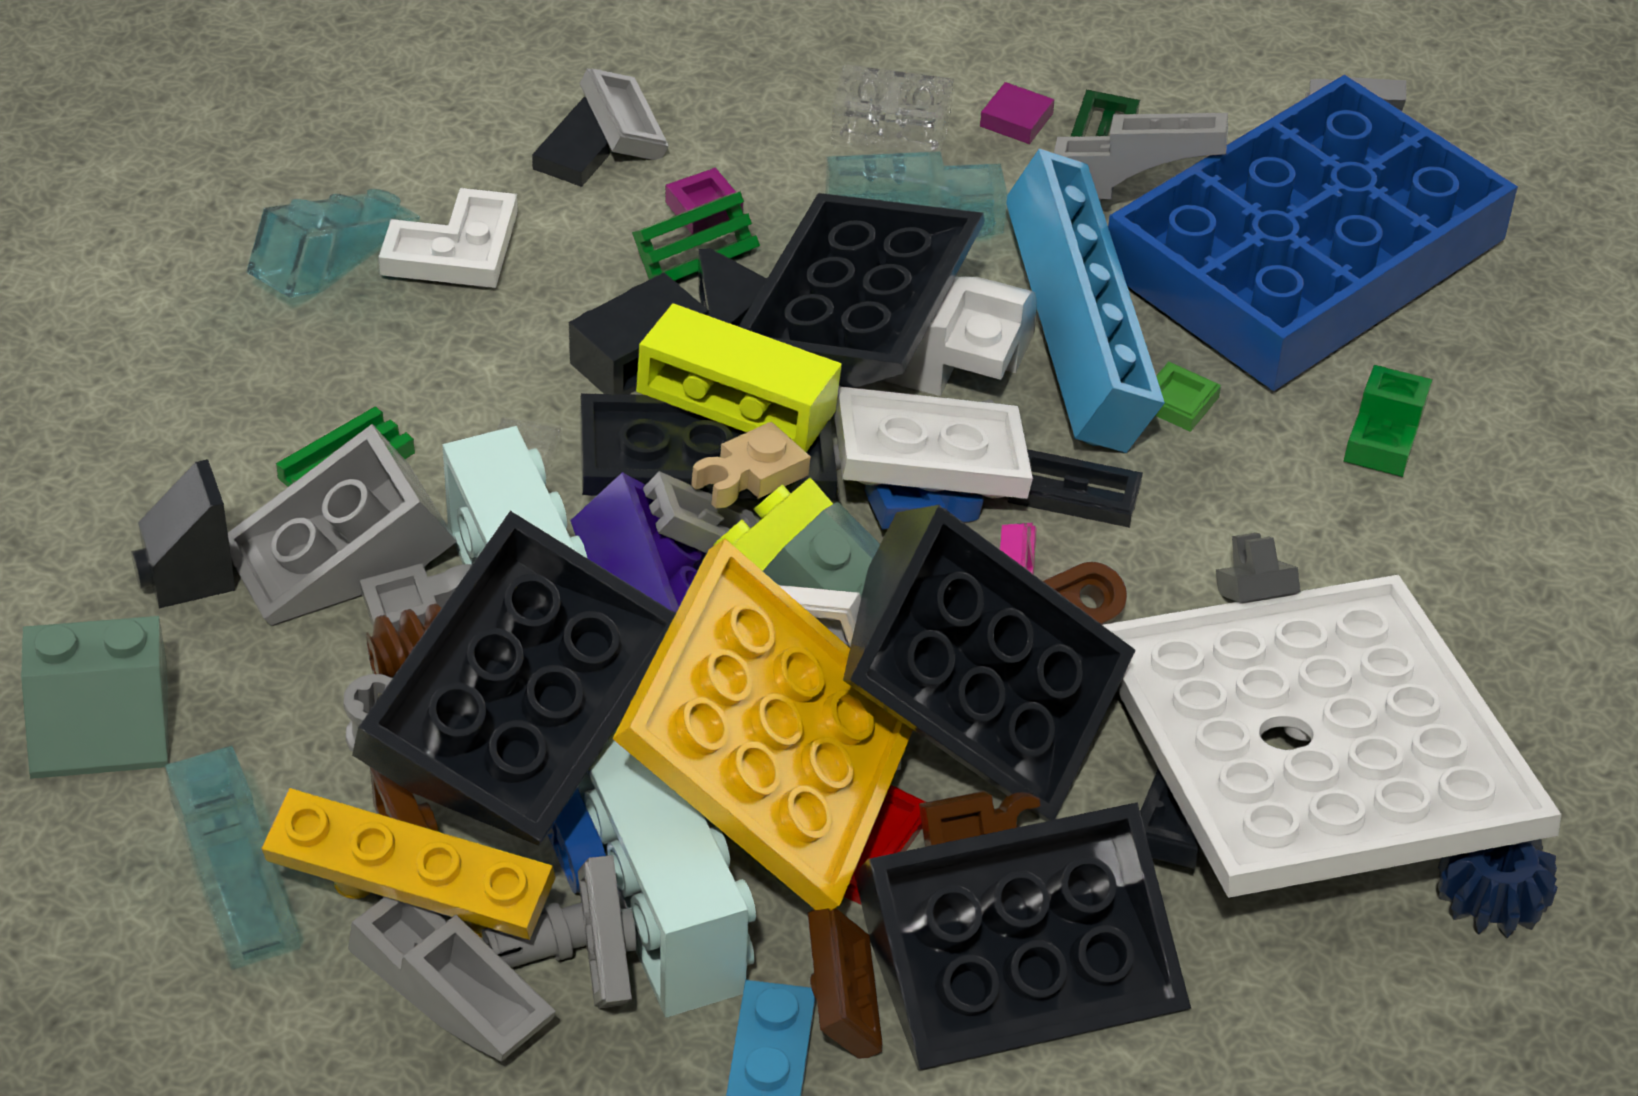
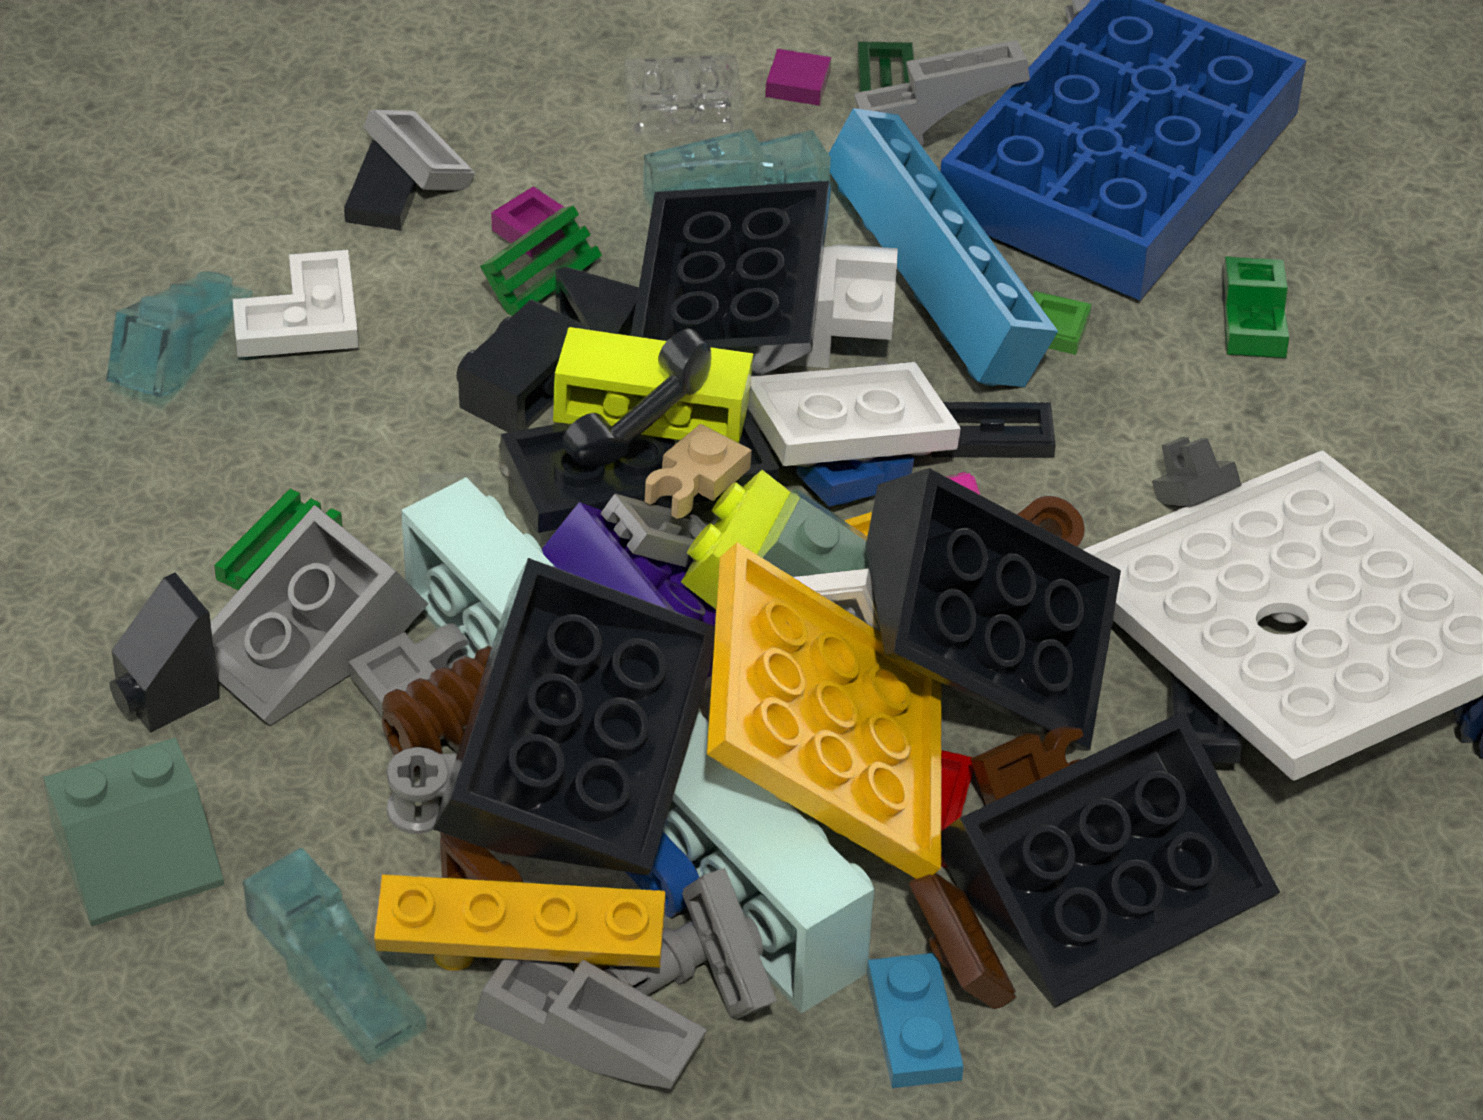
camera: 15 degrees left, 0 degrees up
(765, 361) = (597, 443): none -> black bar

